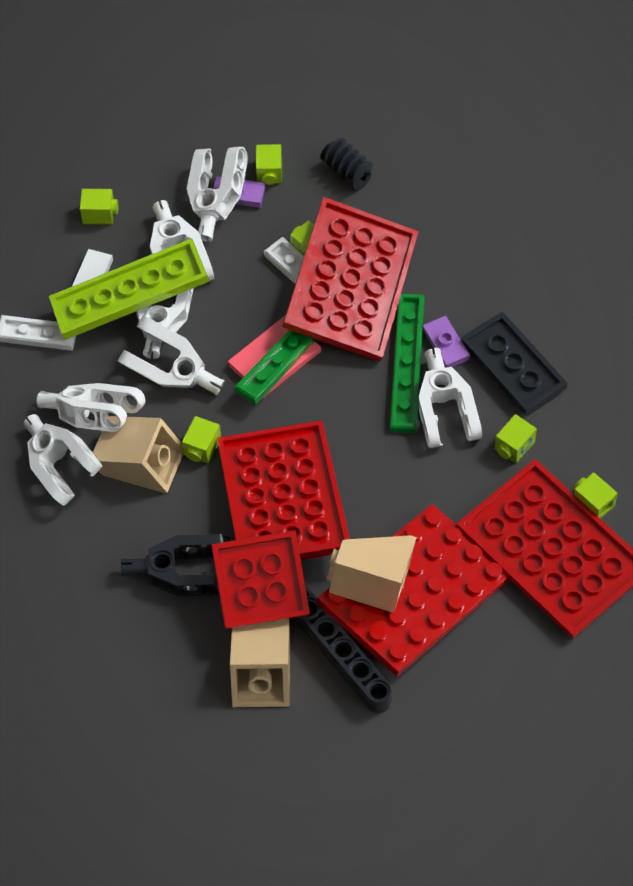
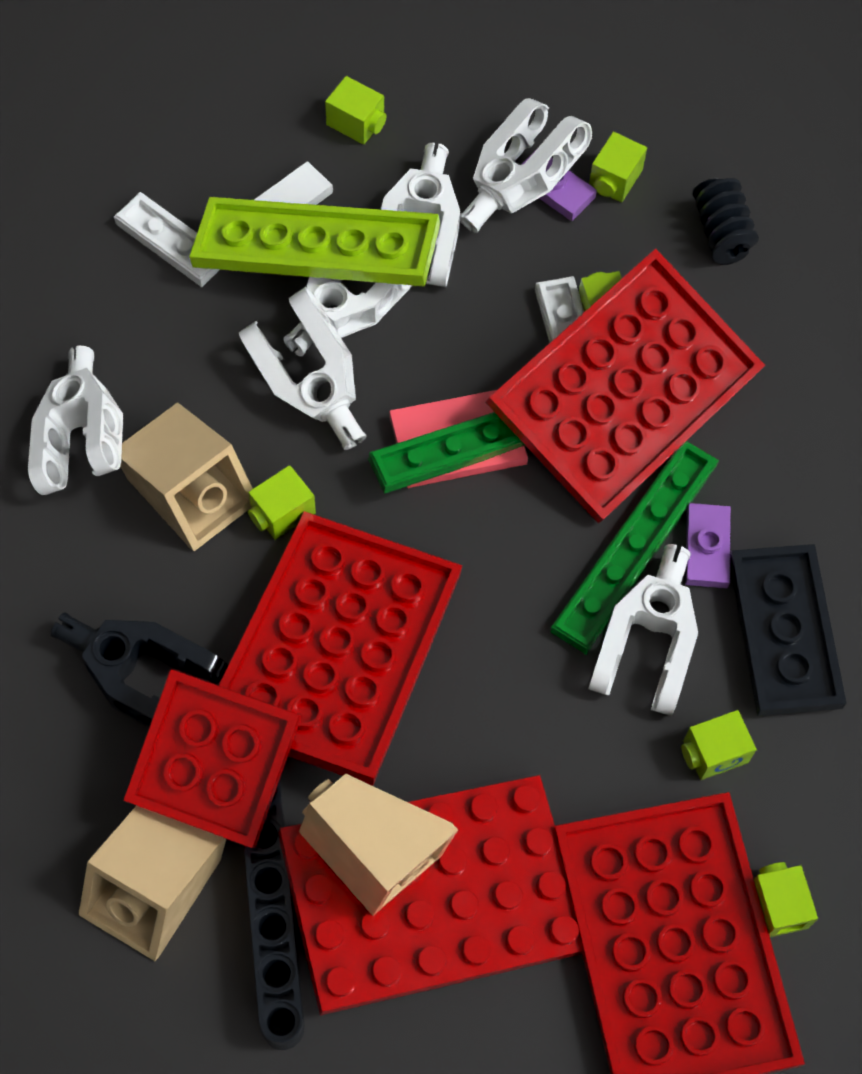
camera: 25 degrees right, 5 degrees up
(79, 400) = (161, 366): white piece -> none

